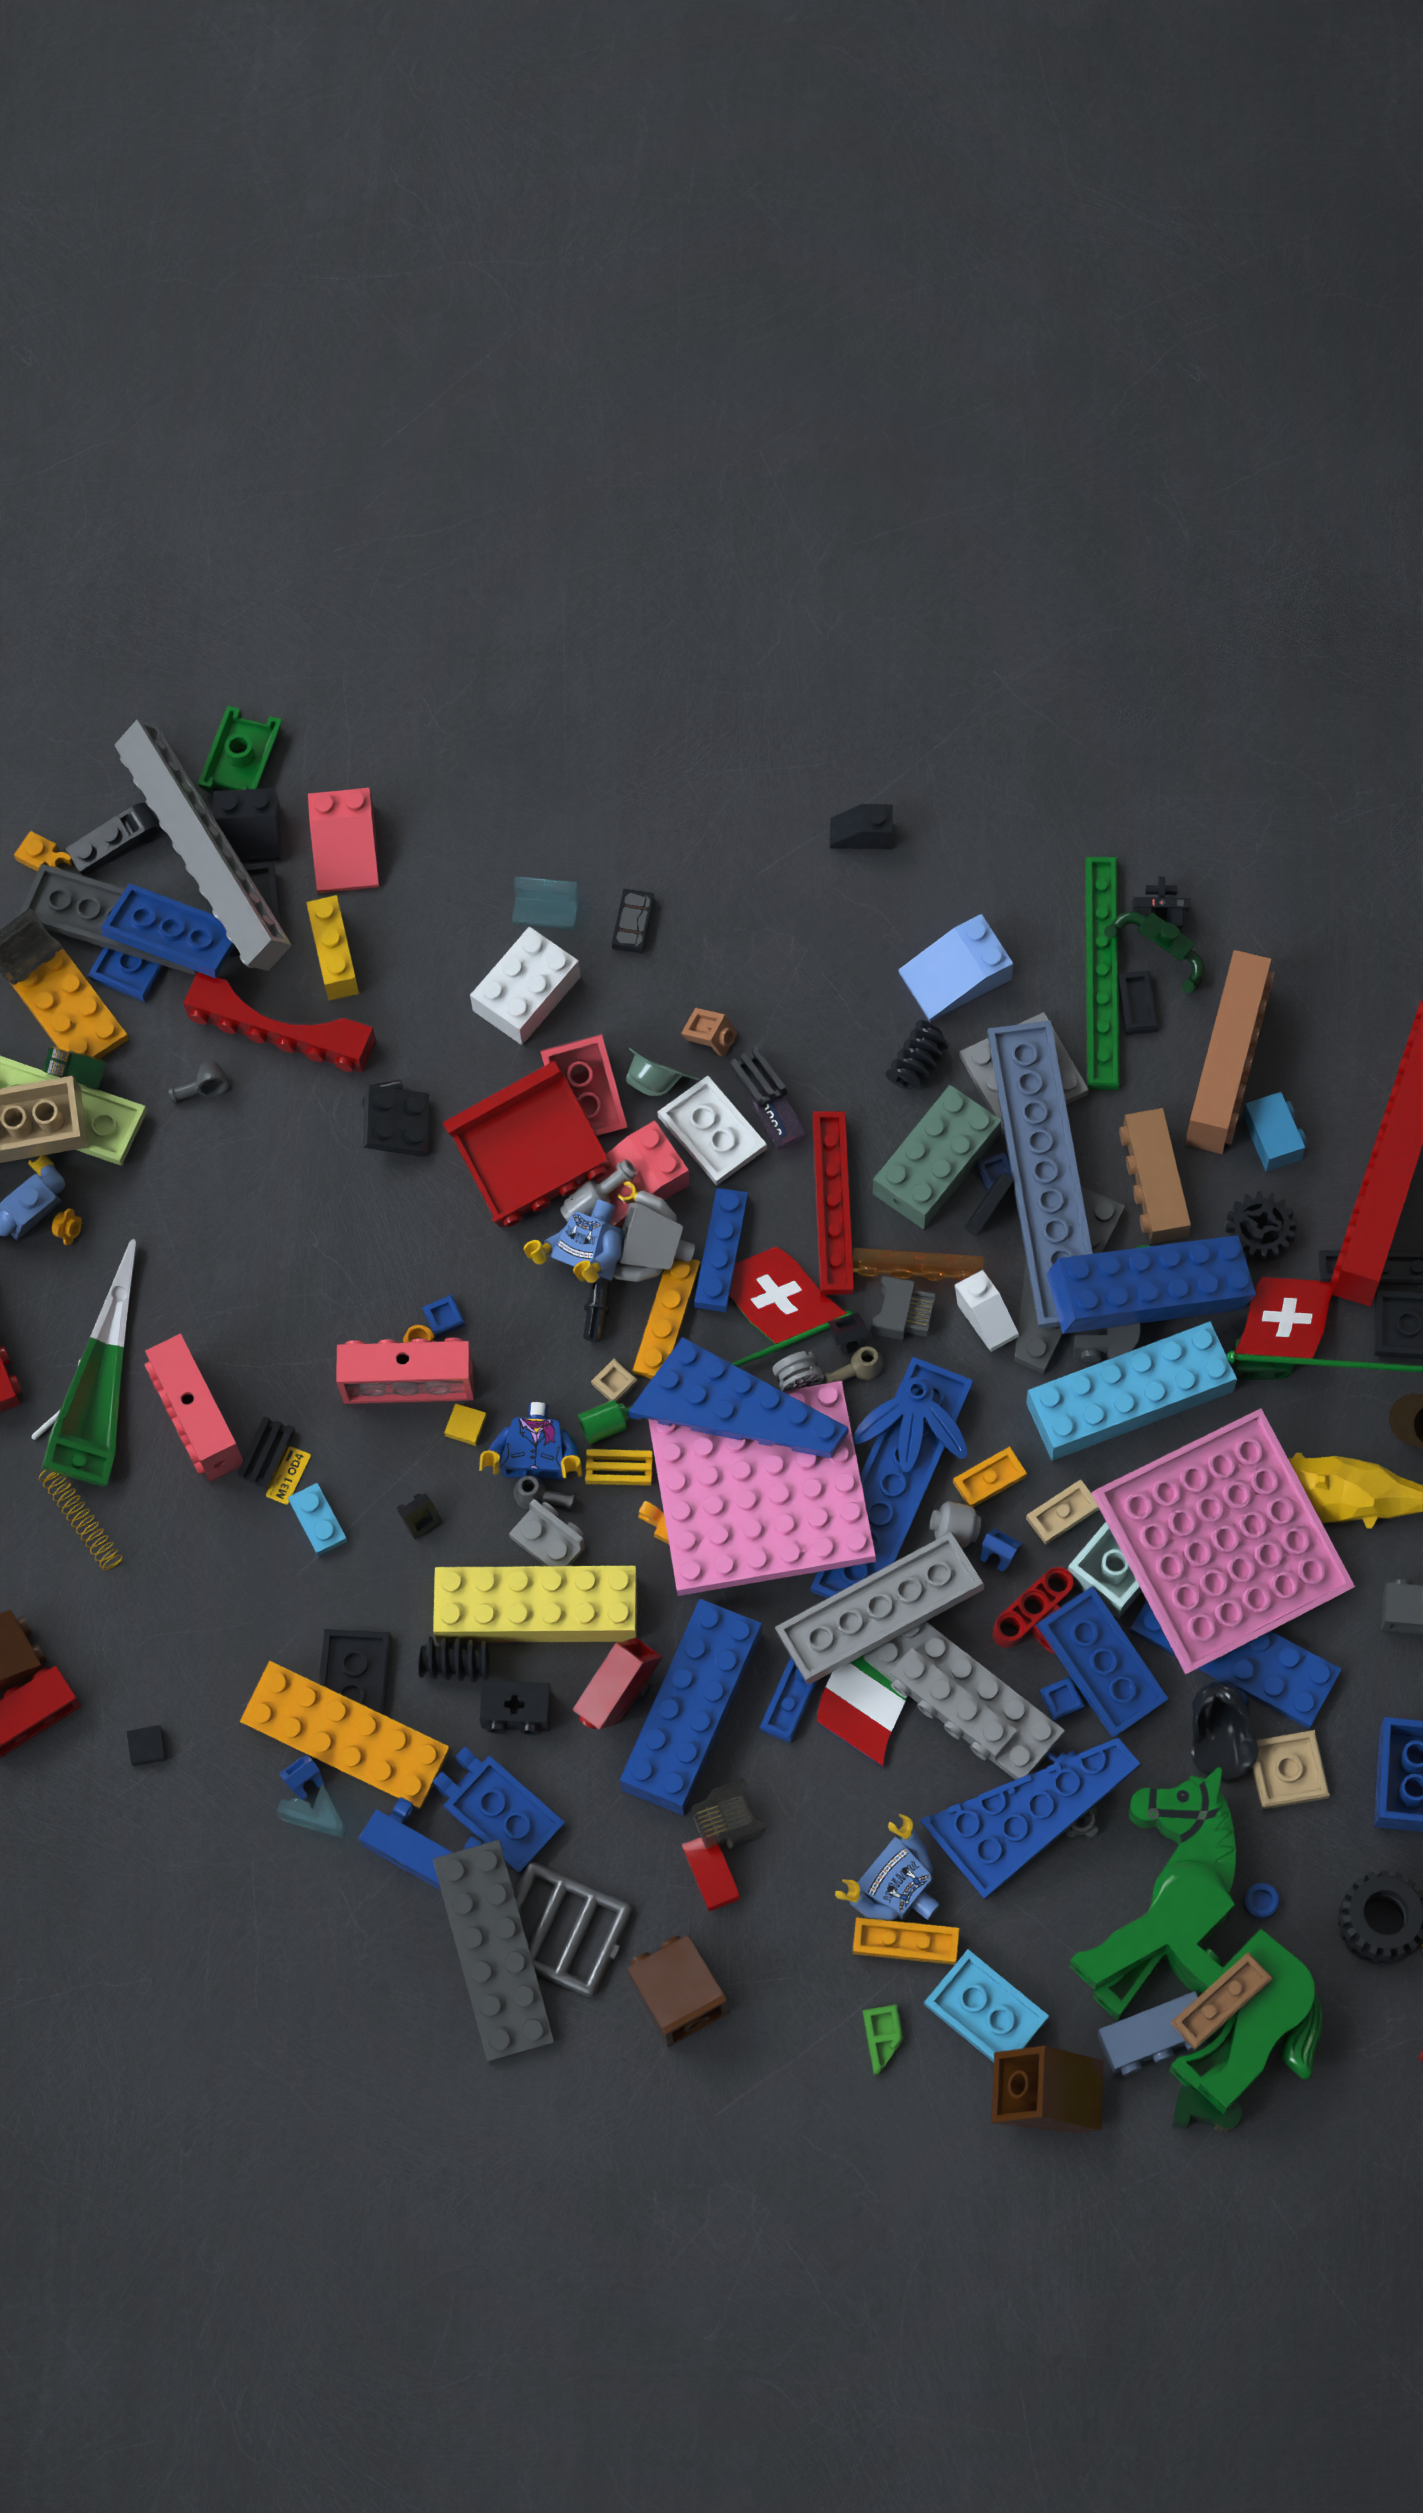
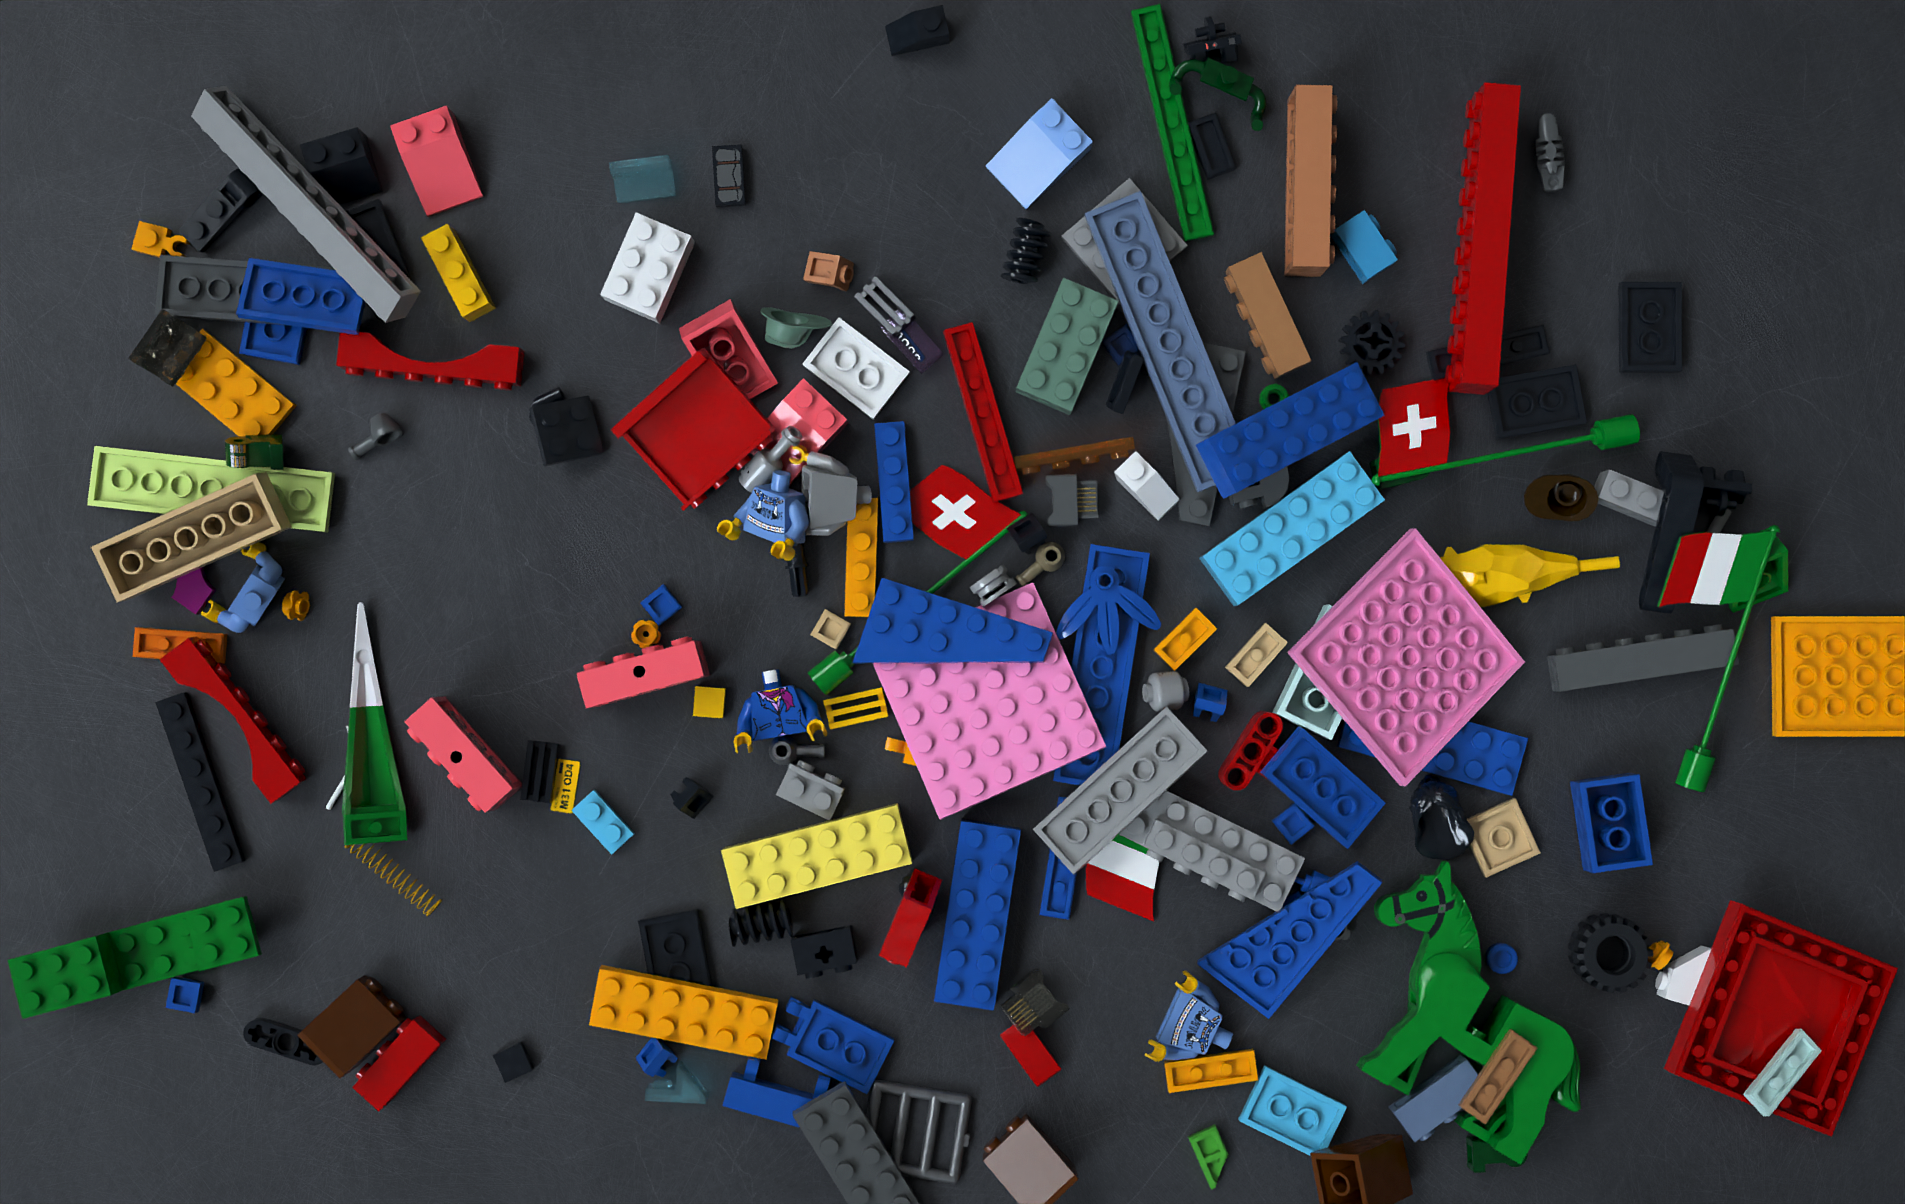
camera: 15 degrees left, 20 degrees up
(244, 770) = (317, 113): green piece -> none

